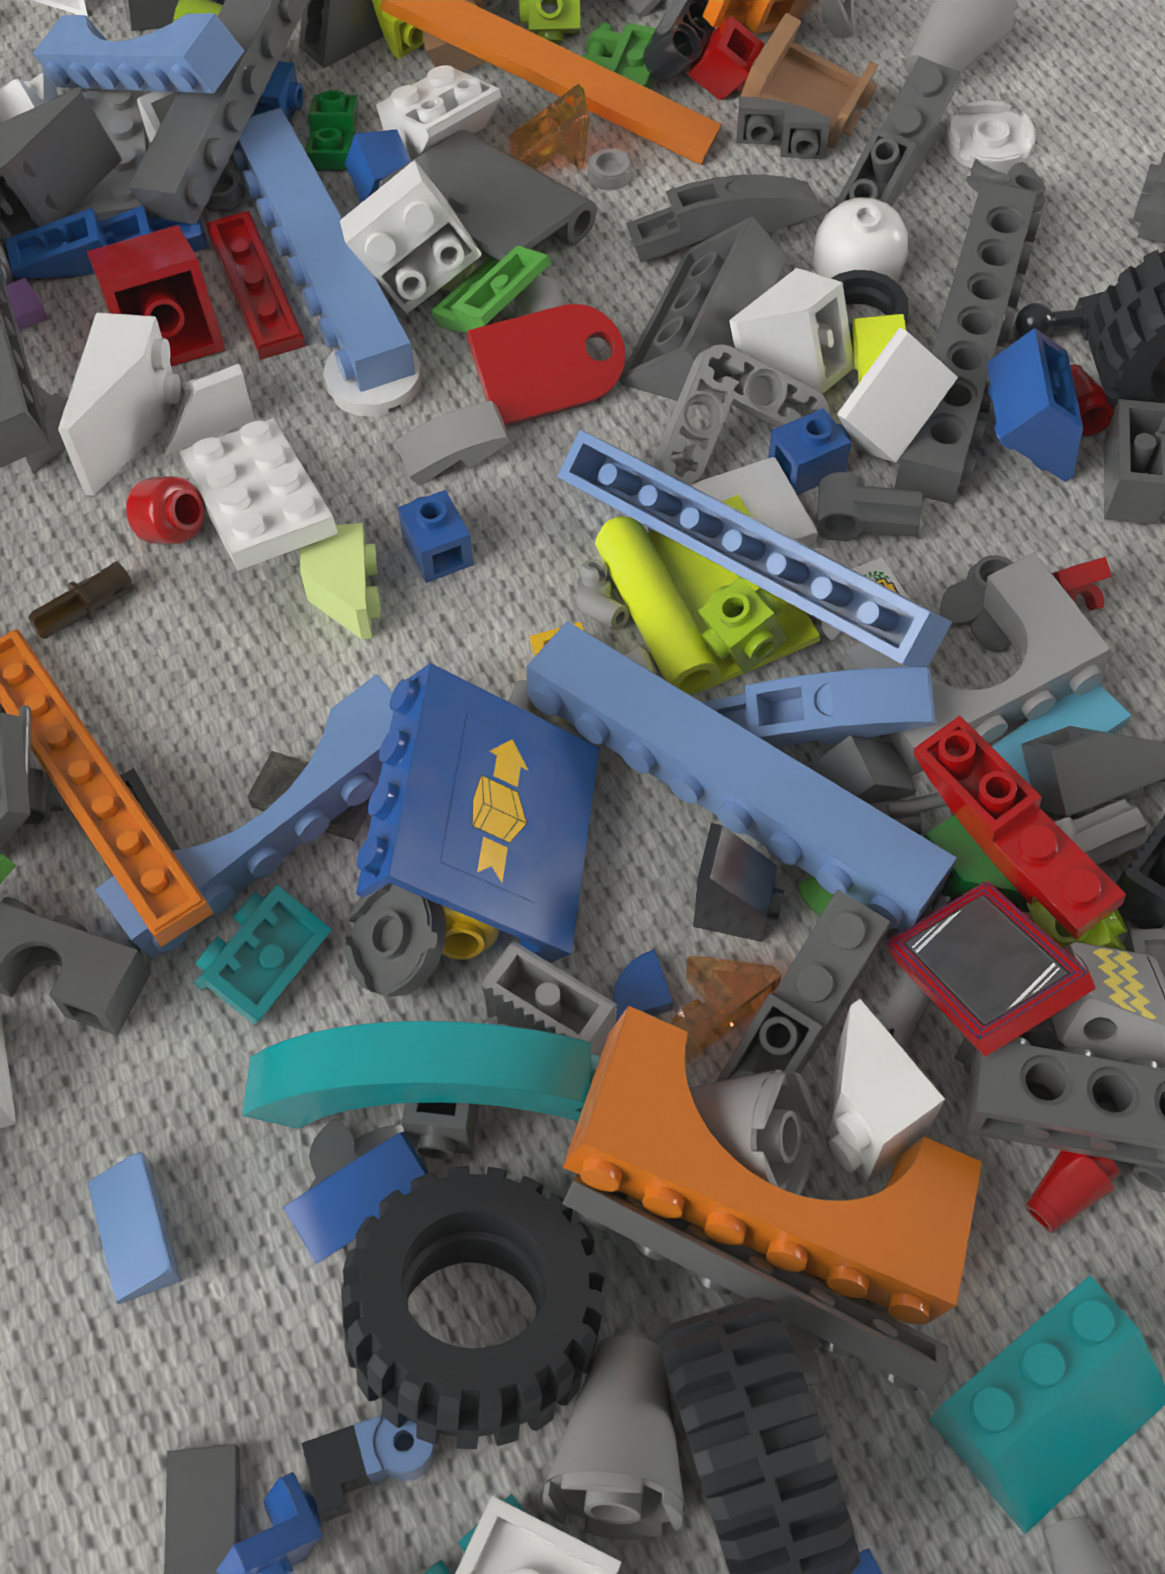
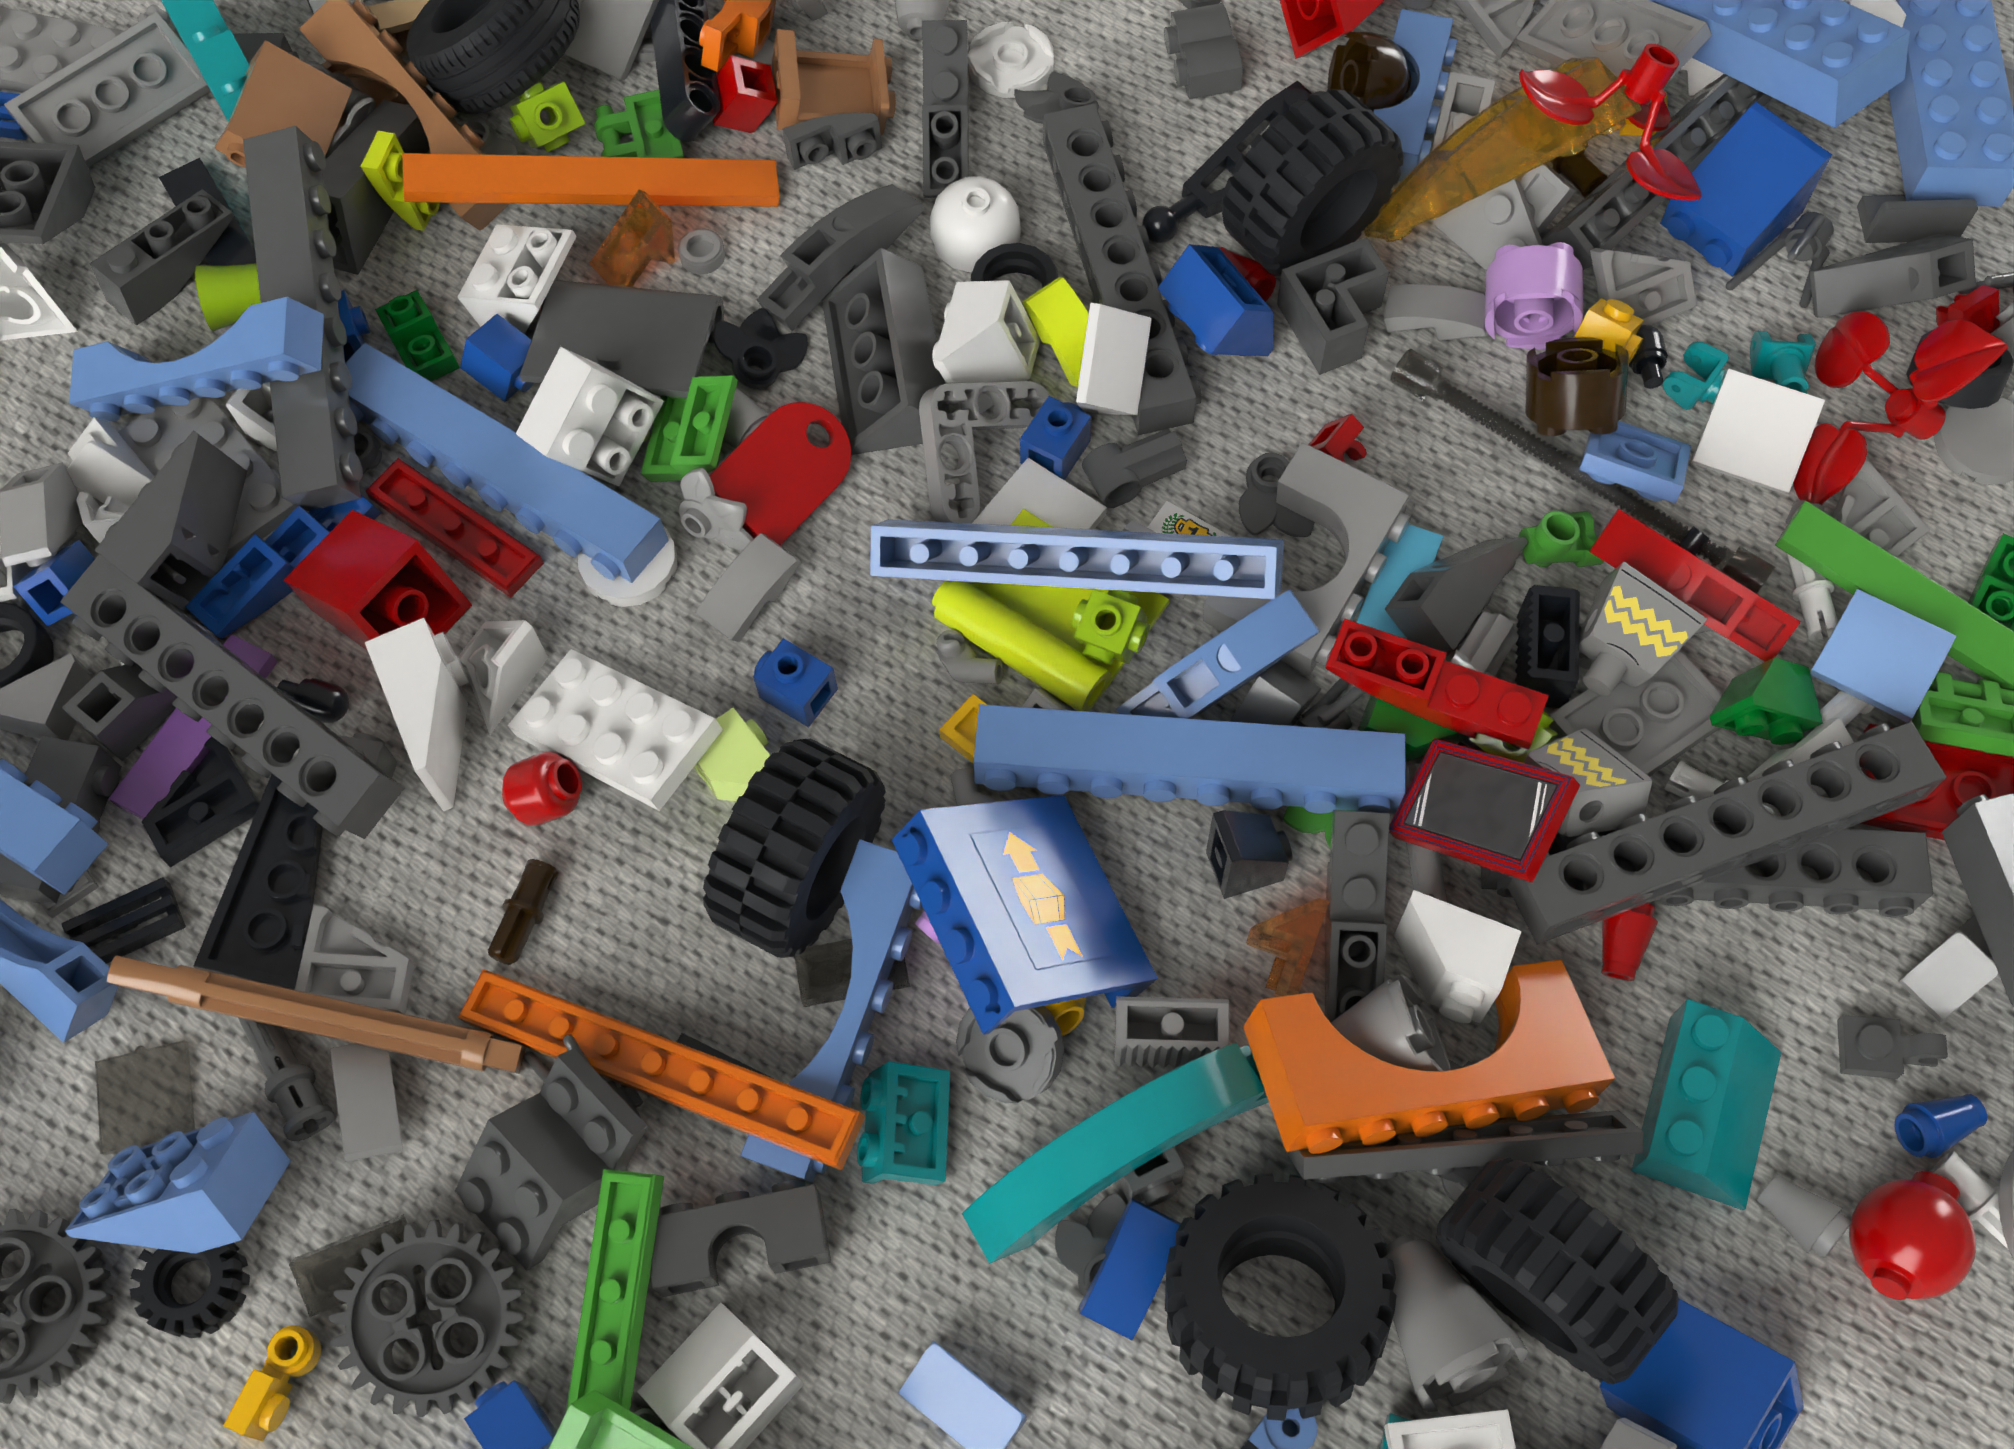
camera: 30 degrees left, 5 degrees up
(50, 357) = (318, 697): none -> black cylinder
(307, 640) = (792, 846): none -> black tyre
(460, 365) = (709, 515): none -> light grey plate
(604, 260) = (759, 345): none -> black plate
(643, 987) = (1222, 971): blue tile -> none

